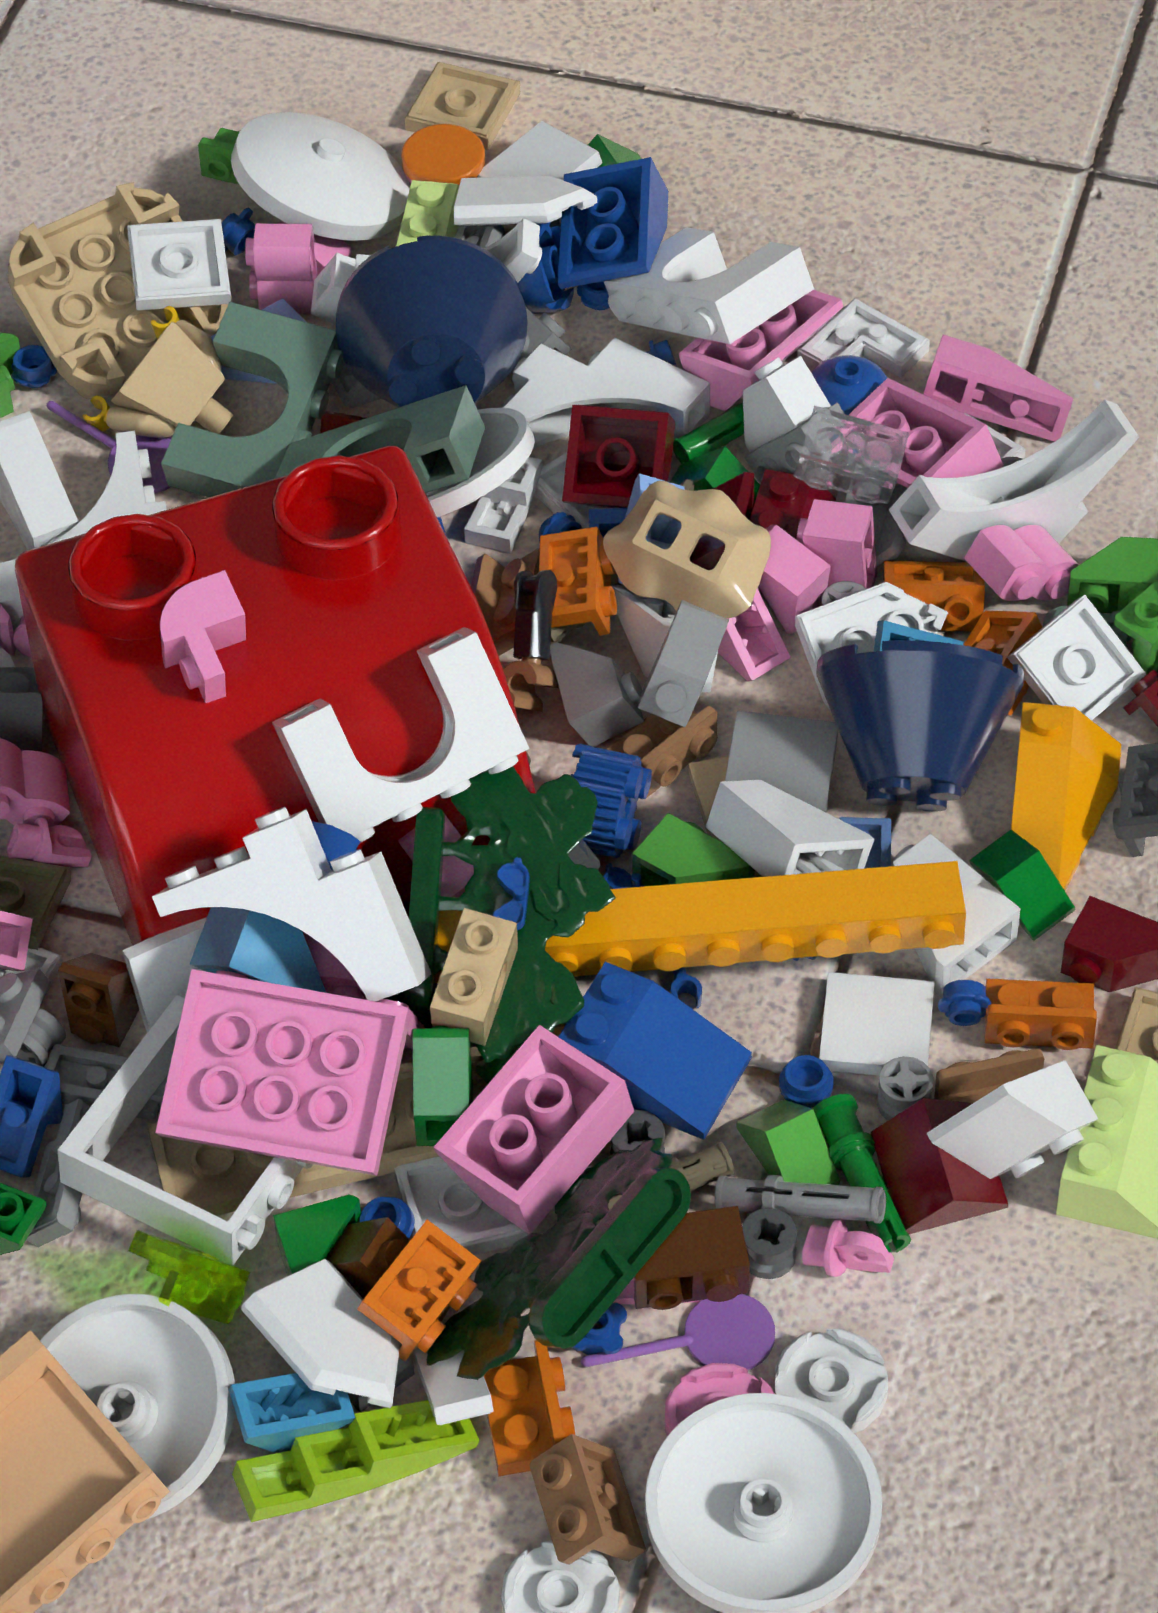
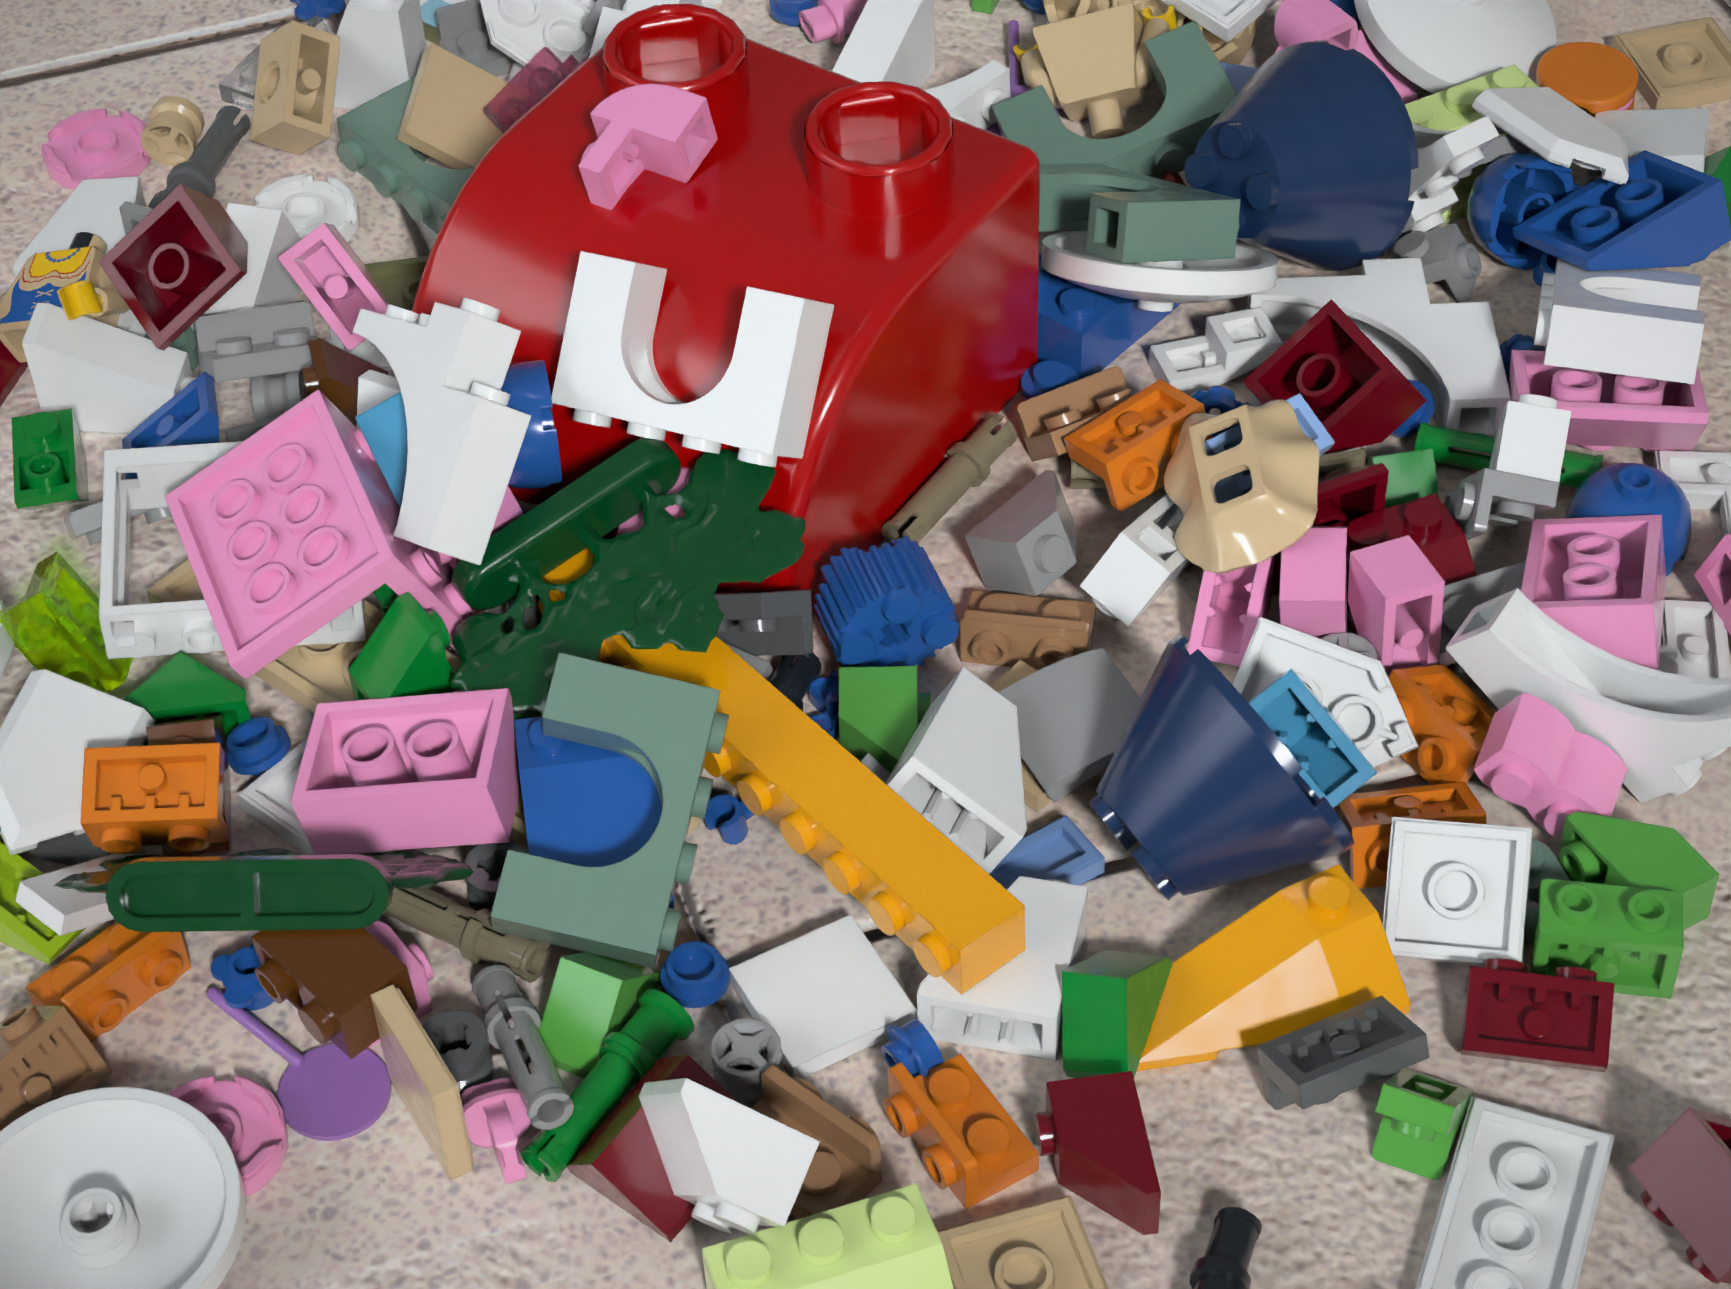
camera: 55 degrees right, 5 degrees down
(475, 974) = (501, 596): tan brick -> none
(514, 880) = (646, 562): blue piece -> none
(532, 638) = (991, 481): black piece -> none
(677, 962) = (625, 905): none -> sand green arch
(683, 663) = (1088, 560): light grey slope -> none
(803, 1261) = (423, 1081): none -> tan tile
(835, 1373) = (324, 1210): white tile -> none
(851, 456) = (1499, 528): clear bracket -> none

